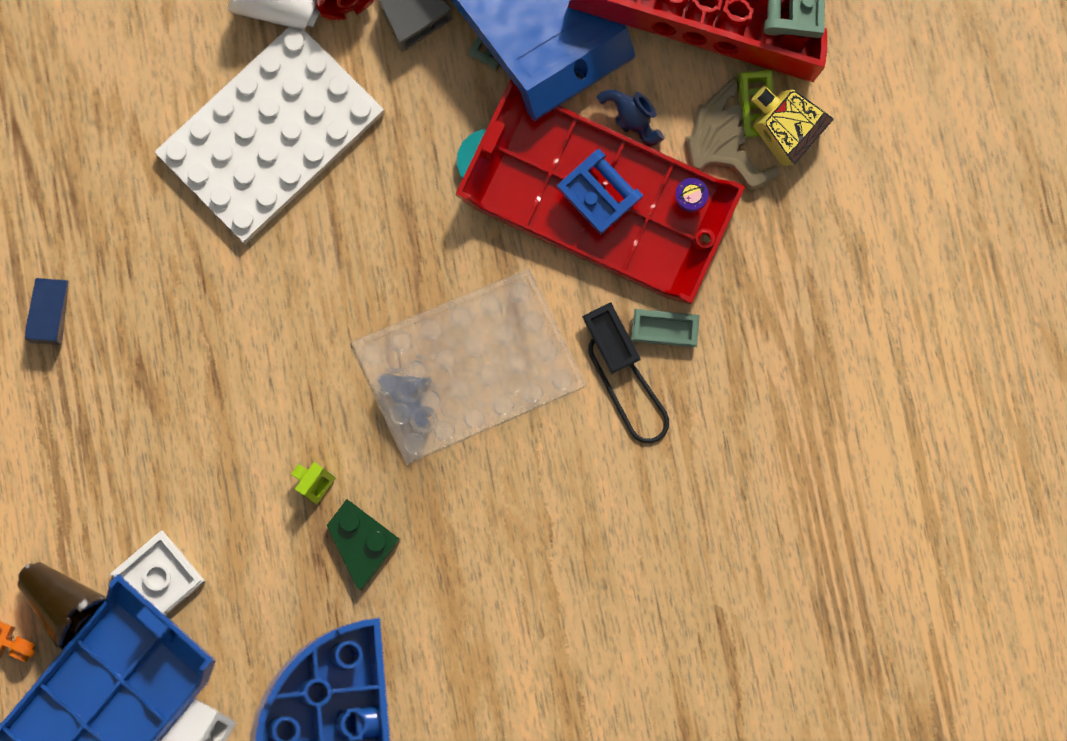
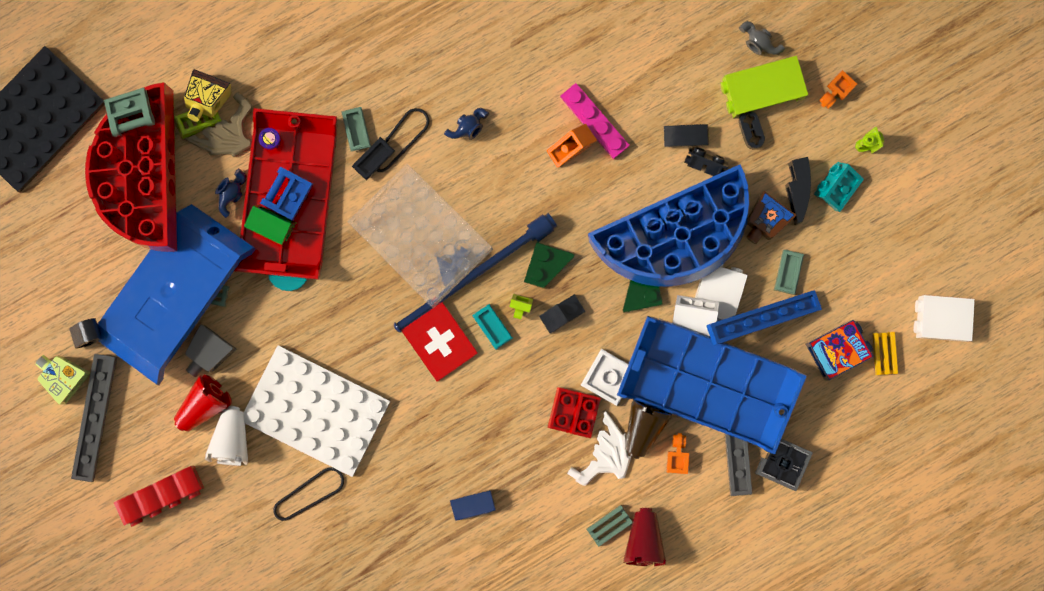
camera: 115 degrees left, 5 degrees up
(45, 537) = (609, 453): none -> white animal
(125, 506) = (574, 412): none -> red slope
(138, 83) = (303, 485): none -> black piece
(257, 668) = (641, 296): none -> dark green wing
(278, 540) = (562, 313): none -> black slope
(297, 429) = (492, 326): none -> teal tile
(313, 345) = (434, 330): none -> flag
(528, 644) = (571, 145): none -> orange slope
(554, 694) = (599, 125): none -> dark pink plate
(561, 151) = (269, 224): none -> green hinge
(613, 497) = (469, 125): none -> dark blue piece

